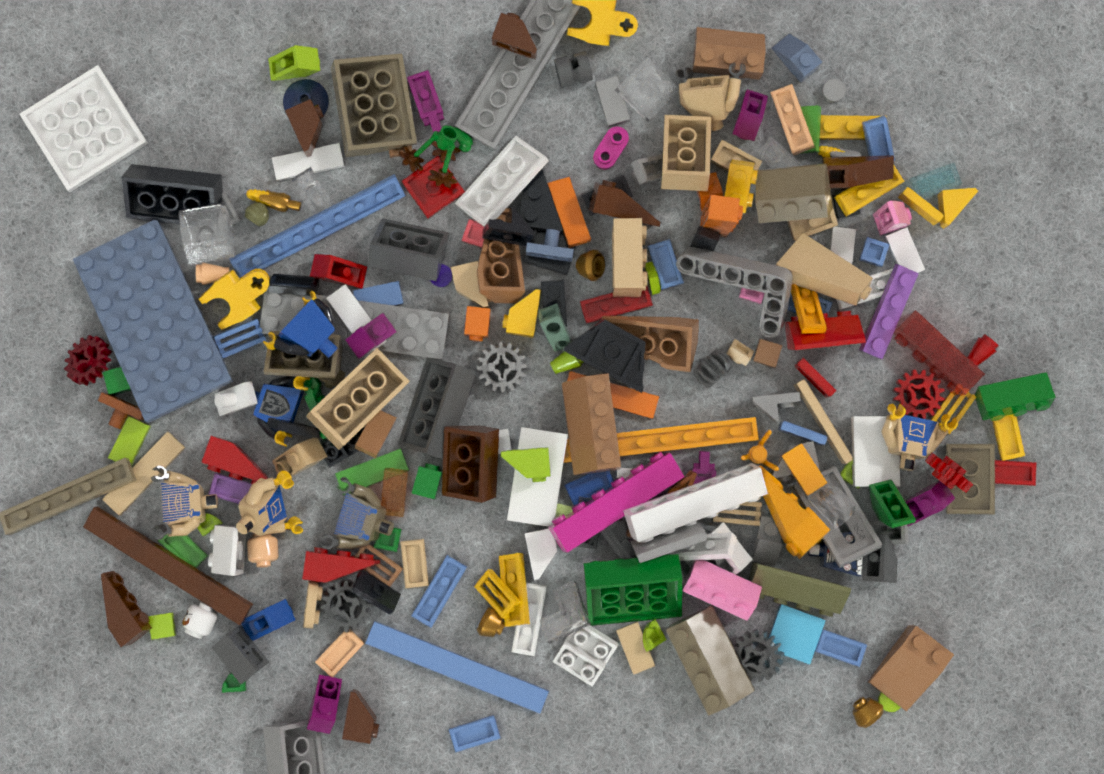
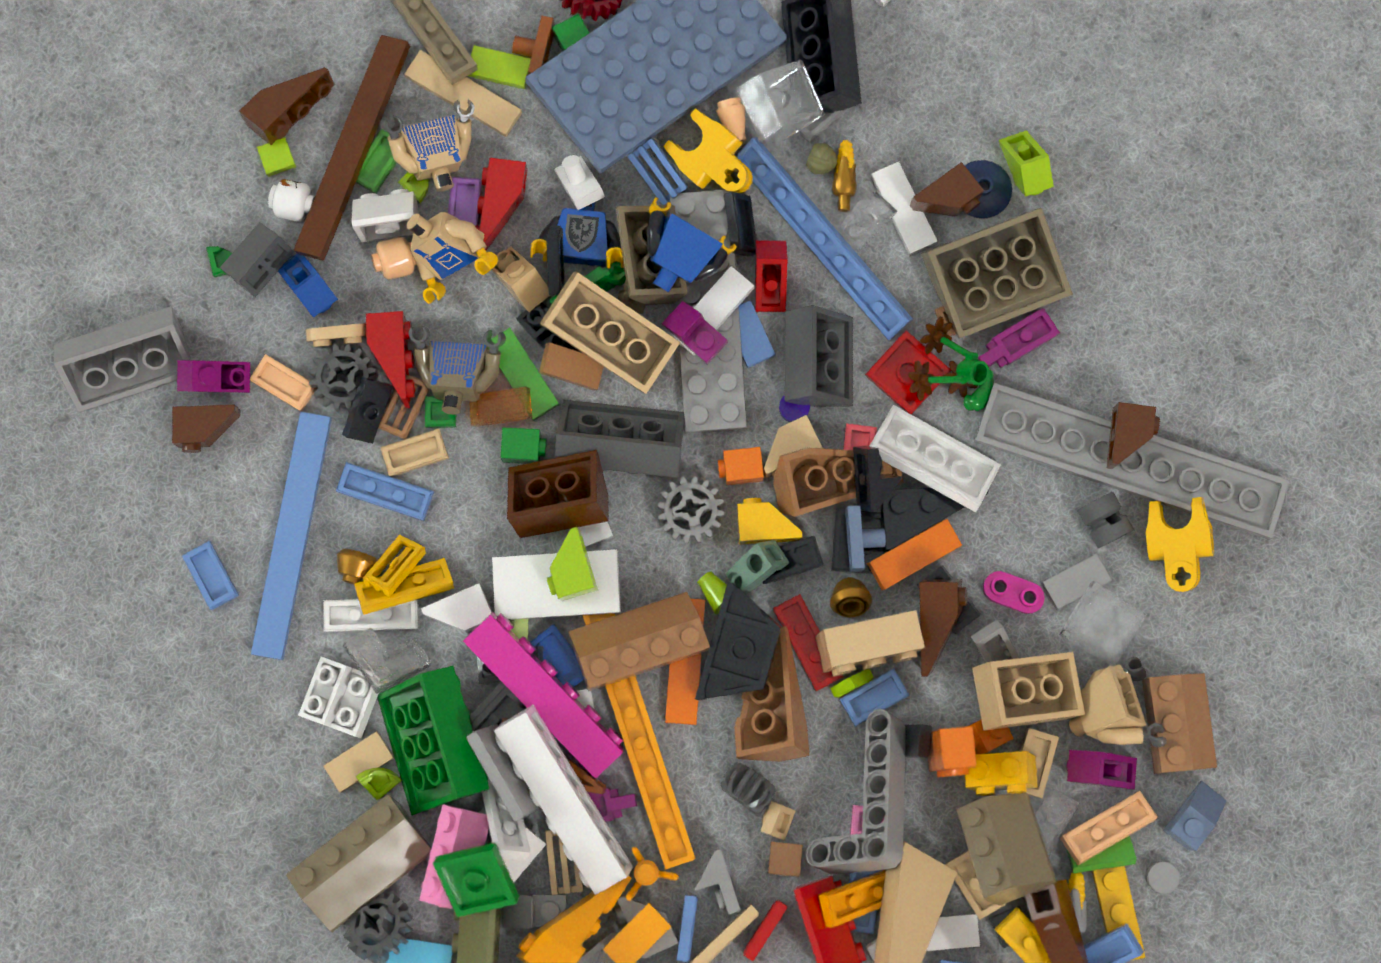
camera: 80 degrees right, 5 degrees down
(744, 575) = (476, 879): none -> green tile

